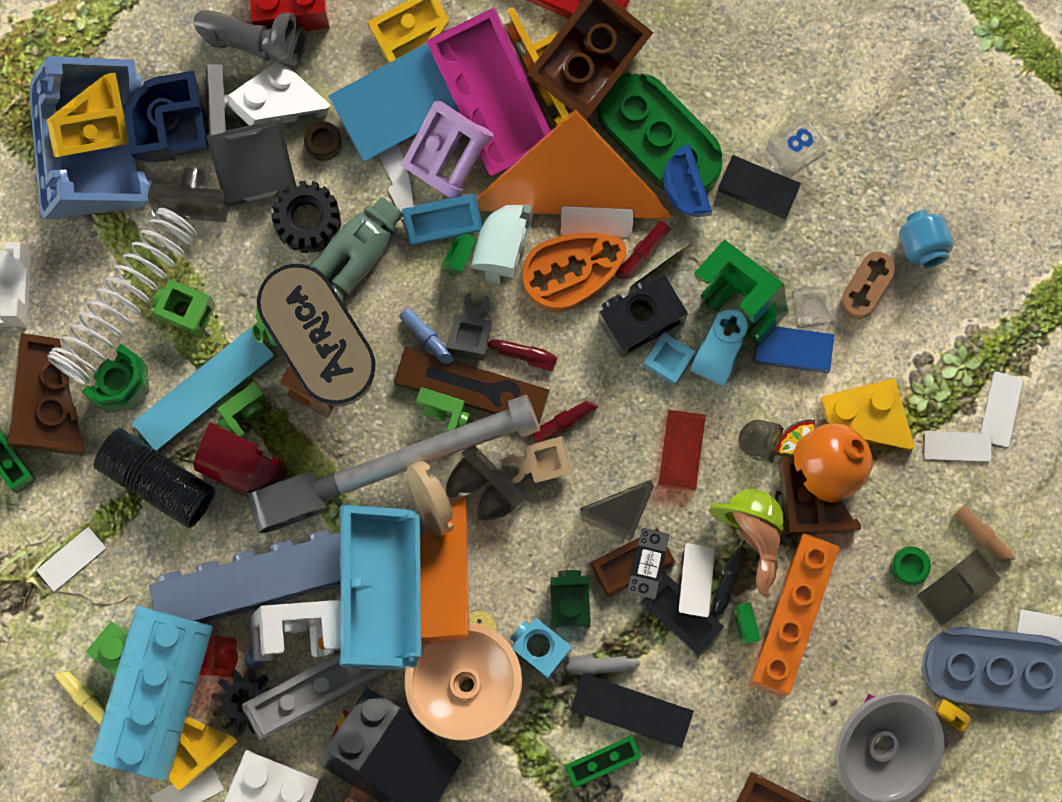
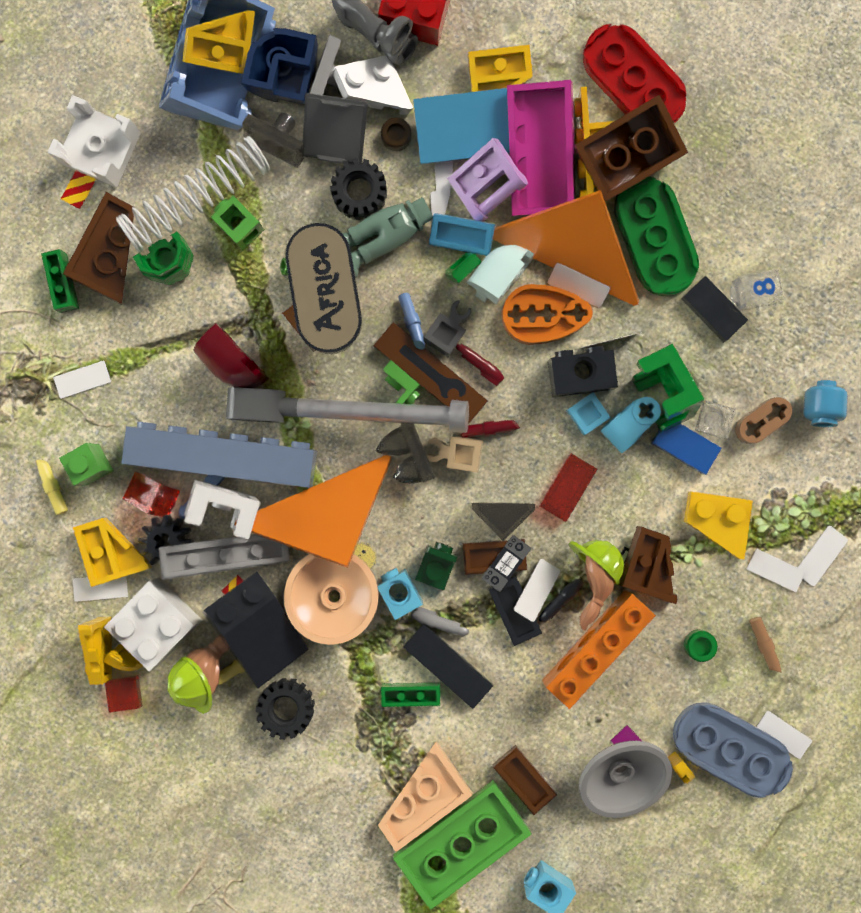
camera: 25 degrees right, 10 degrees up
(151, 693) = (93, 512): medium azure container -> none
(162, 485) = (168, 349): black piece -> none
(203, 390) = (227, 293): medium azure tile -> none
(243, 405) = (254, 317): bright green bracket -> none
(380, 588) = (294, 504): medium azure container -> none
(430, 498) = (362, 450): tan tile -> none
(643, 250) = (605, 322): dark red piece -> none
(684, 184) = (658, 284): blue tile -> none
(746, 624) = (559, 640): green tile -> none
(760, 439) = (630, 505): clear smoke tile -> none
(791, 436) = (657, 516): tile -> none
(833, 461) = (679, 547): orange cylinder -> none
(959, 587) = (730, 677): clear smoke slope -> none

